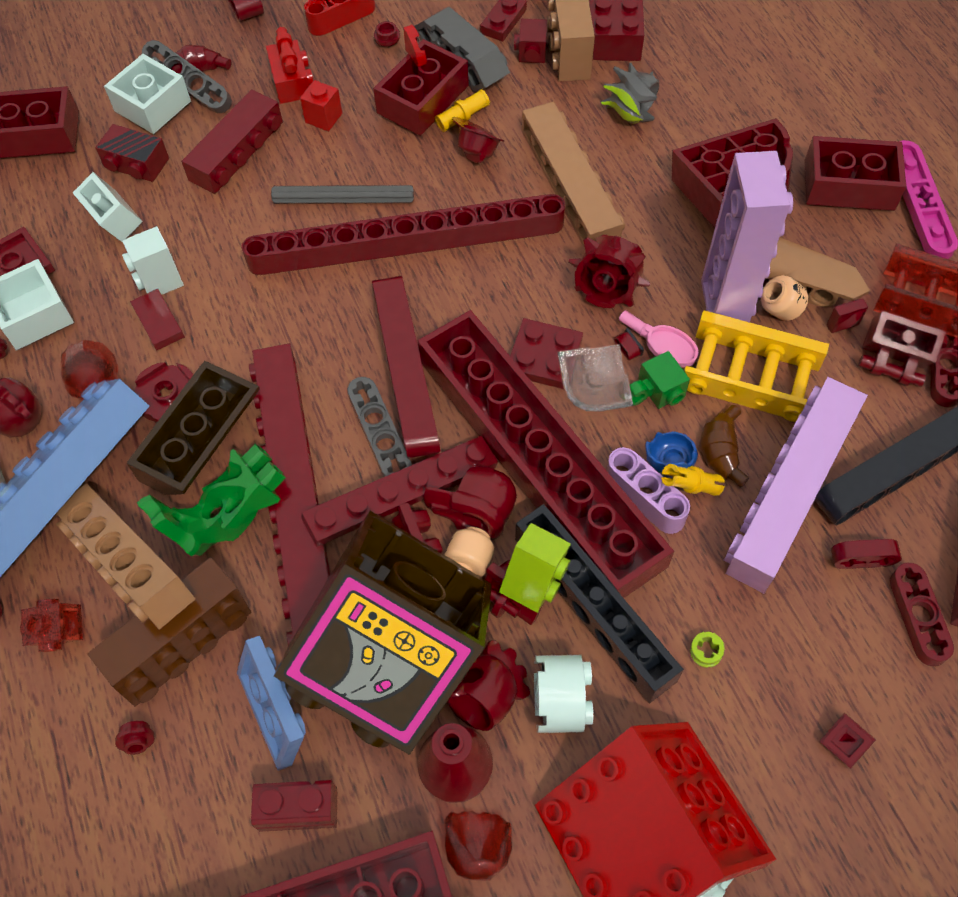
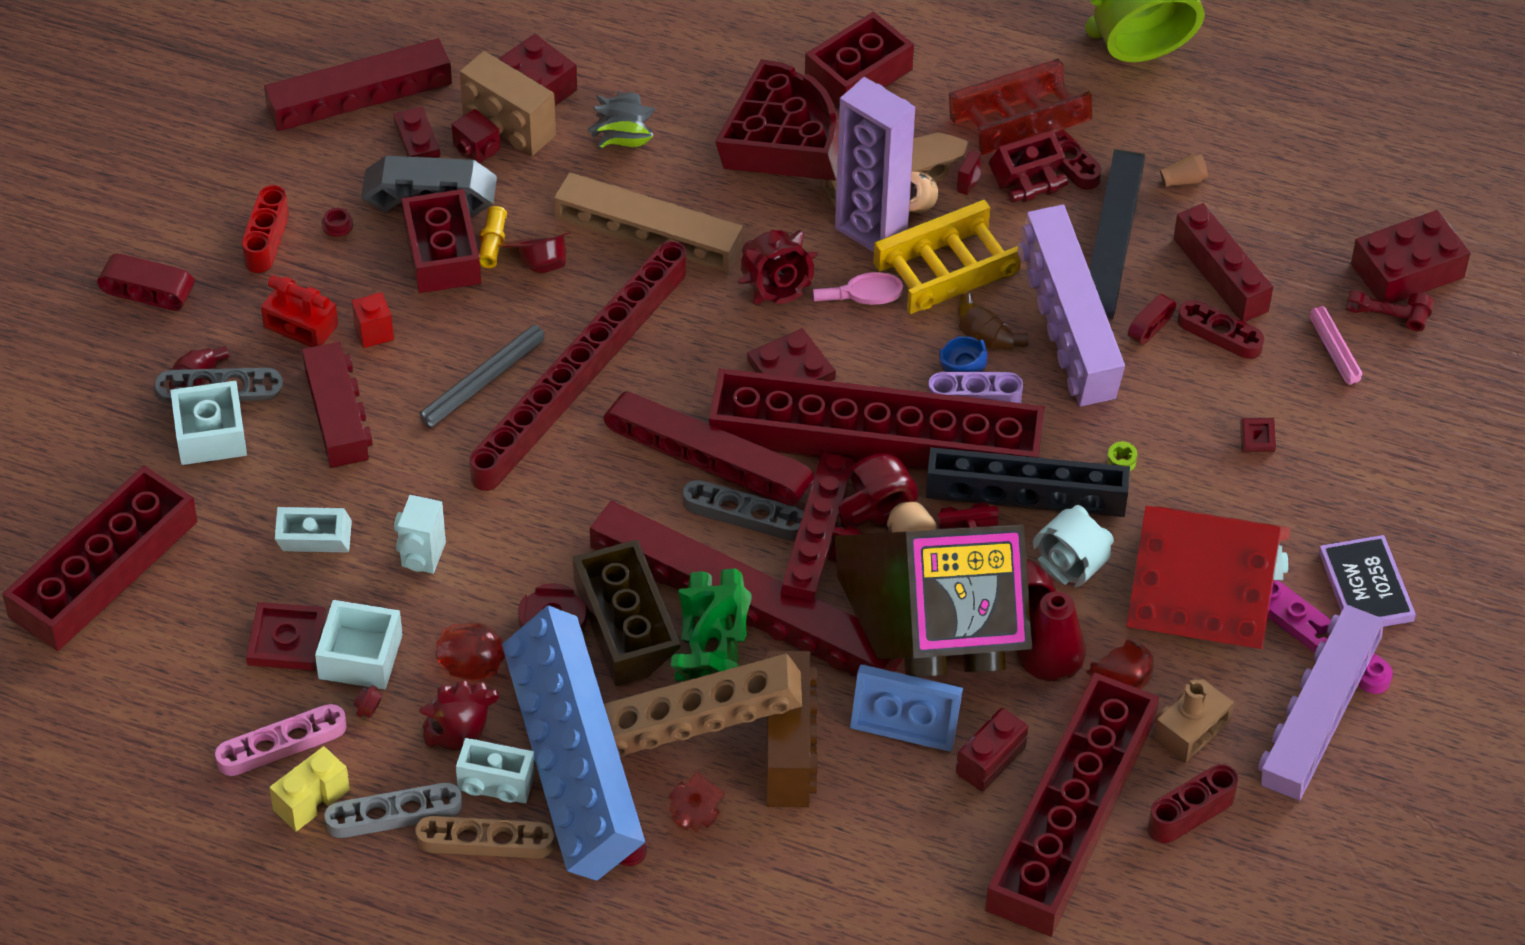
camera: 50 degrees left, 10 degrees down
(132, 153) = (260, 479): dark red brick -> none
(134, 737) = (840, 812): dark red plate -> none
(157, 319) = (466, 578): dark red tile -> none
(412, 47) = (413, 209): red tile -> none
(535, 567) = (979, 481): lime brick -> none
(595, 378) = (858, 349): clear brick -> none
(629, 345) = (841, 312): dark red piece -> none
(661, 381) = (899, 317): green brick -> none
(693, 480) = (999, 359): yellow pin -> none
(930, 217) = (940, 54): dark pink piece -> none

